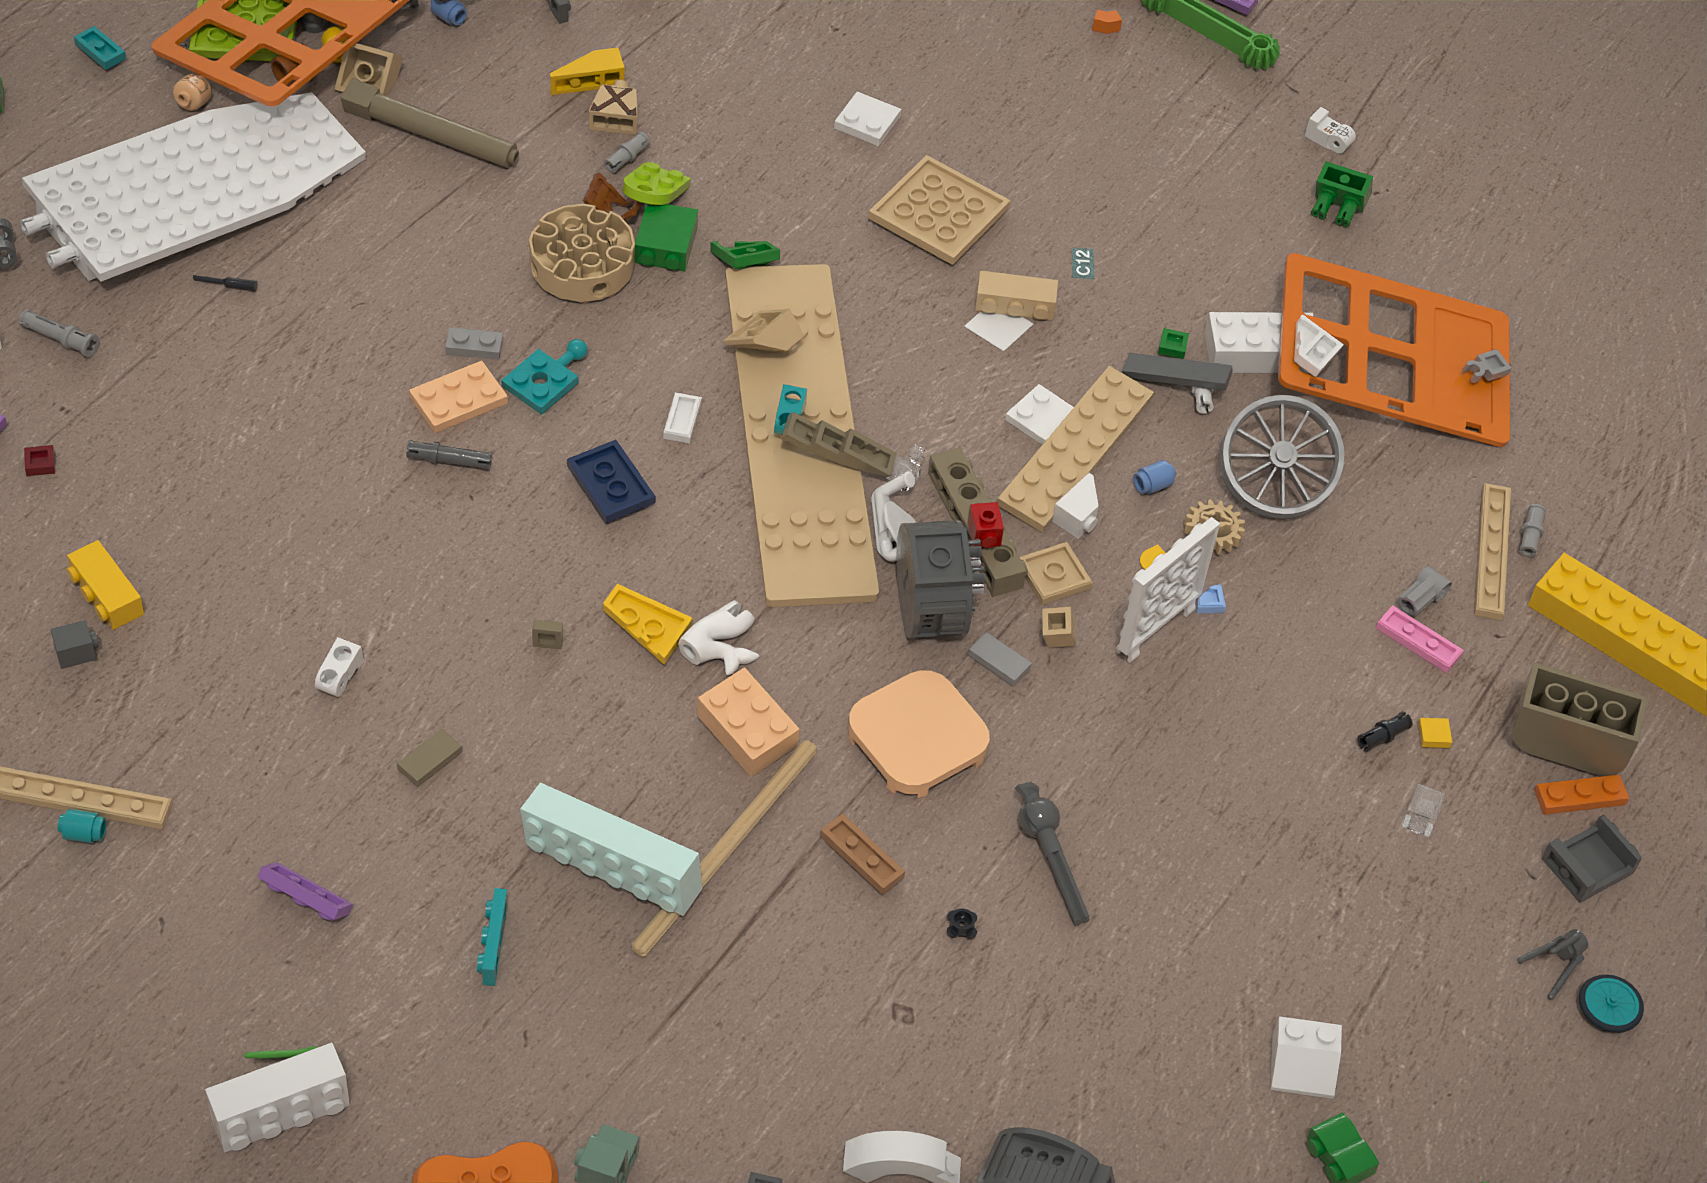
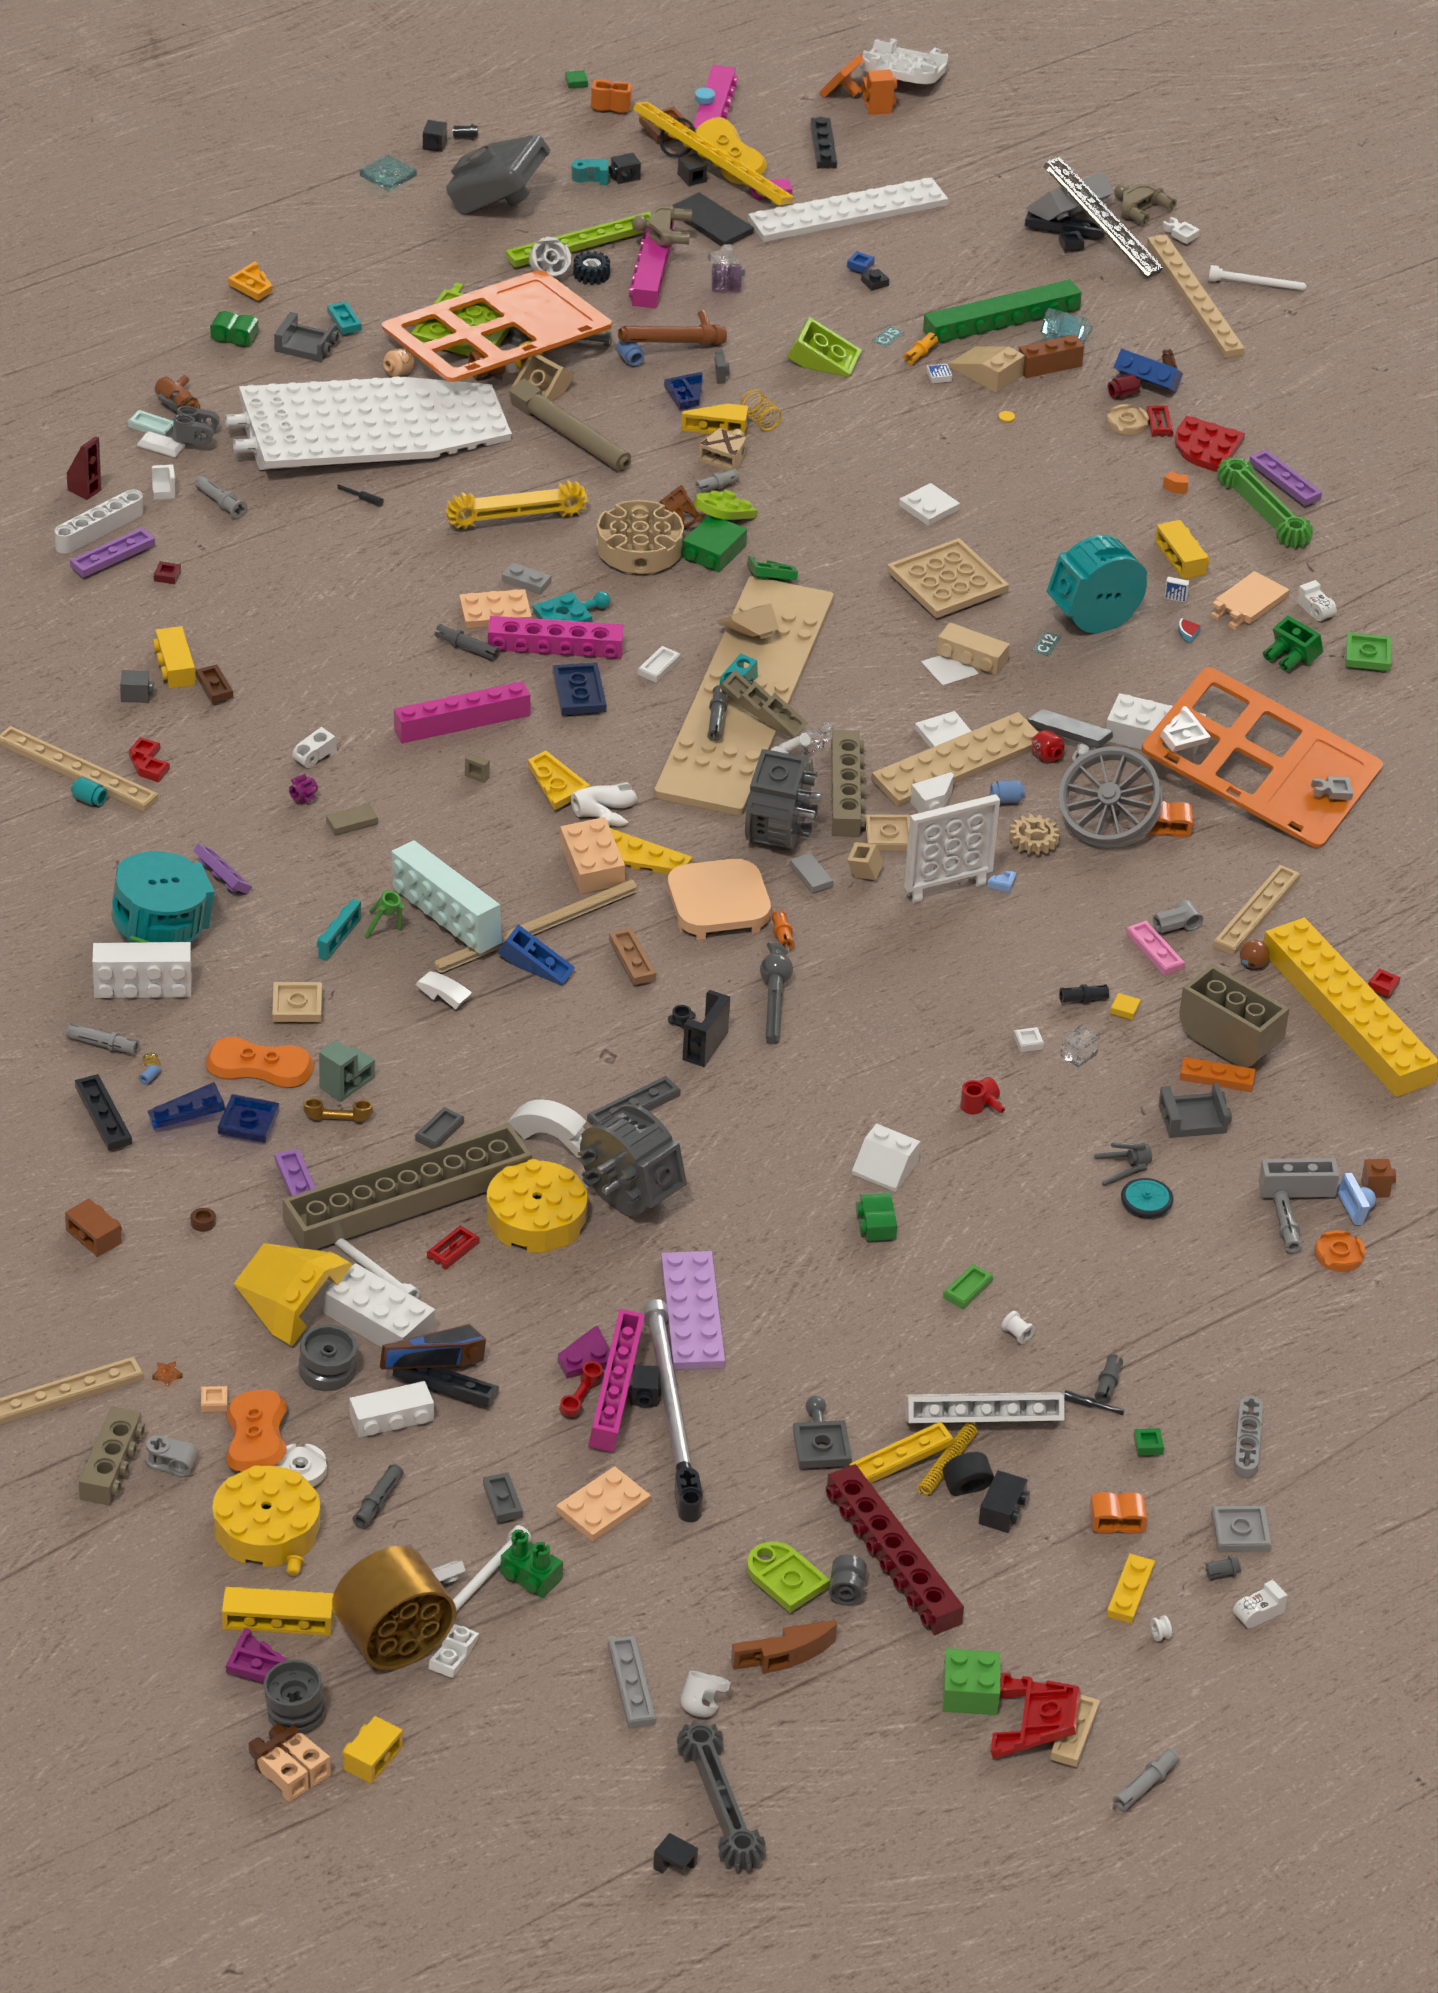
camera: 25 degrees right, 10 degrees down
(66, 89) = (304, 340): none -> dark grey panel
(137, 759) = (142, 757): none -> red tile
(171, 608) = (214, 683): none -> reddish brown plate
(260, 981) = (161, 897): none -> teal piece
(352, 734) = (303, 788): none -> magenta gear
(369, 270) = (516, 504): none -> yellow arm
(492, 559) = (461, 712): none -> dark pink brick
(492, 1069) = (297, 1001): none -> tan plate
(532, 42) = (685, 389): none -> clear blue wing
(549, 888) = (388, 905): none -> bright green plant
(550, 417) = (556, 637): none -> dark pink brick
(640, 51) = (766, 411): none -> yellow piece
(659, 981) = (439, 985): none -> white slope
(750, 896) = (535, 957): none -> blue slope
(787, 463) = (717, 706): none -> dark grey pin
(808, 695) = (645, 854): none -> yellow wing
(971, 1080) = (648, 1097): none -> dark grey tile
(986, 524) = (843, 779): red brick -> none
(1011, 960) = (704, 1038): none -> black panel
(1013, 755) = (783, 929): none -> orange pin
(1119, 178) = (1098, 583): none -> teal piece
(1160, 104) = (1181, 549): none -> yellow brick
(1164, 402) = (1047, 746): none -> red head
(1173, 343) = (1082, 711): green plate -> none
(1183, 156) = (1176, 589): none -> tile
(1219, 202) = (1188, 629): none -> tile
(1258, 146) = (1249, 599): none -> light nougat tile
(1356, 459) = (1174, 820): none -> orange brick
(1359, 817) = (1028, 1039): none -> white tile
(1360, 915) = (979, 1093): none -> red piece
(1414, 178) = (1368, 651): none -> bright green plate
(1532, 530) = (1297, 904): light grey pin -> none
(1532, 615) = (1254, 954): none -> dark orange piece
(1679, 607) = (1384, 982): none -> red plate

